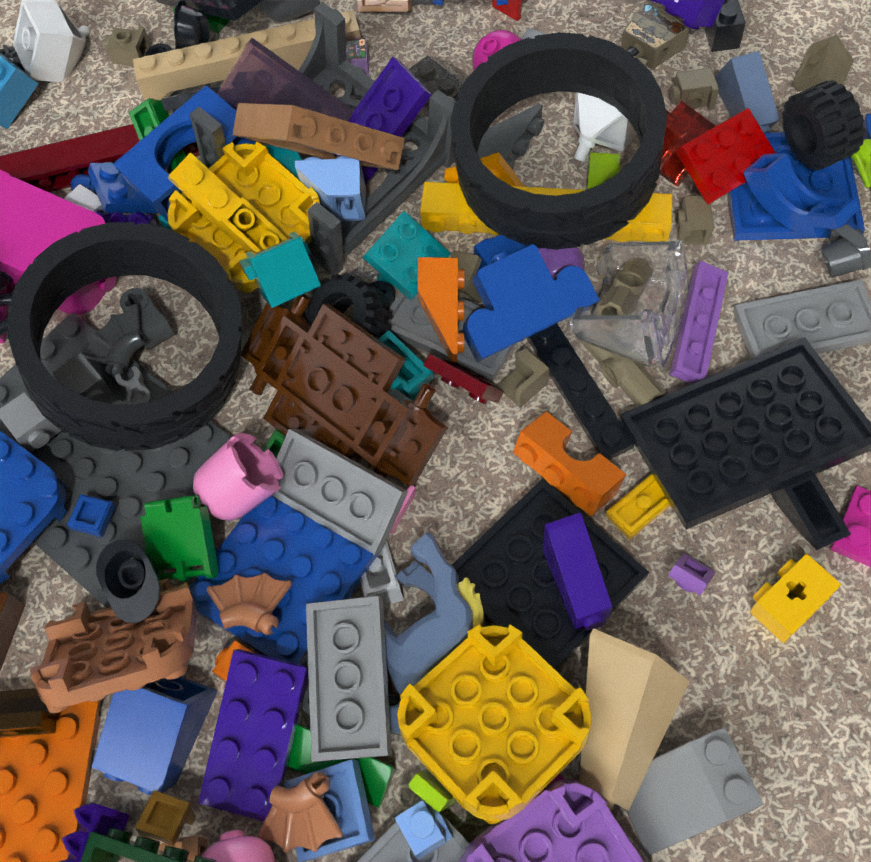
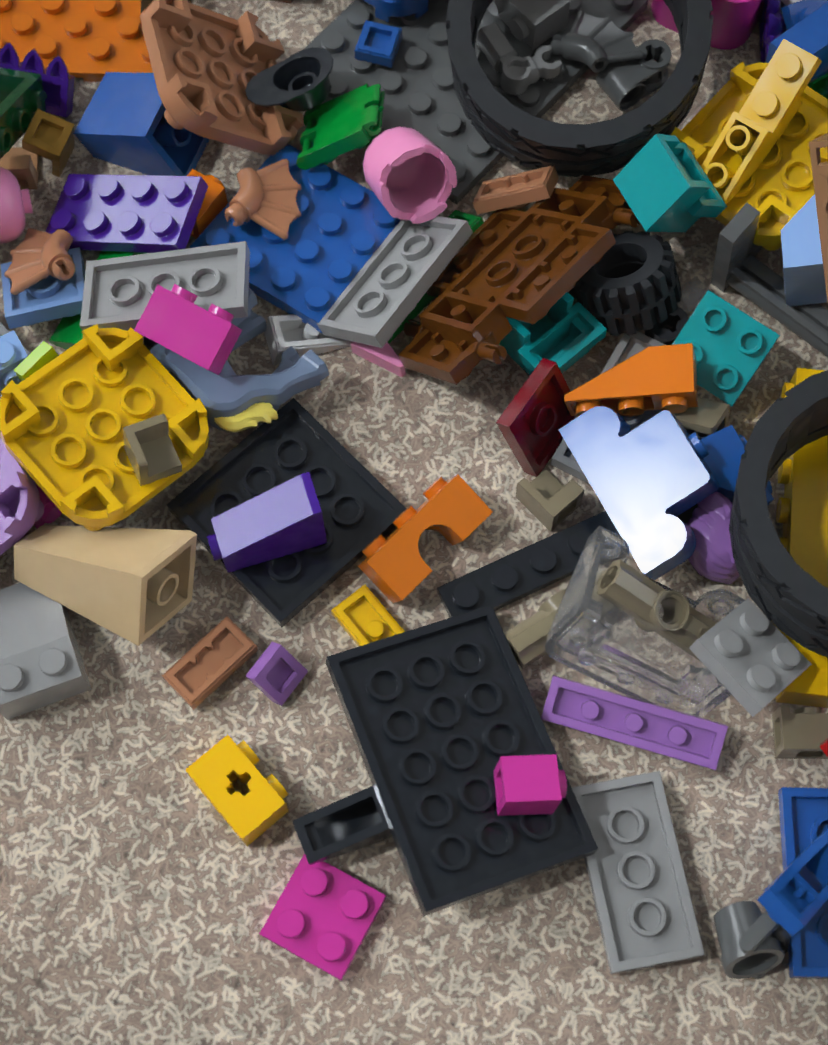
camera: 85 degrees right, 5 degrees up
(253, 401) = (515, 190): none -> nougat plate
(404, 639) = (188, 328): none -> dark pink brick
(525, 667) = (151, 449): none -> dark tan panel
(658, 234) = (750, 656): none -> light grey plate
(687, 630) = (210, 662): none -> nougat plate
(774, 374) = (528, 785): none -> dark pink brick

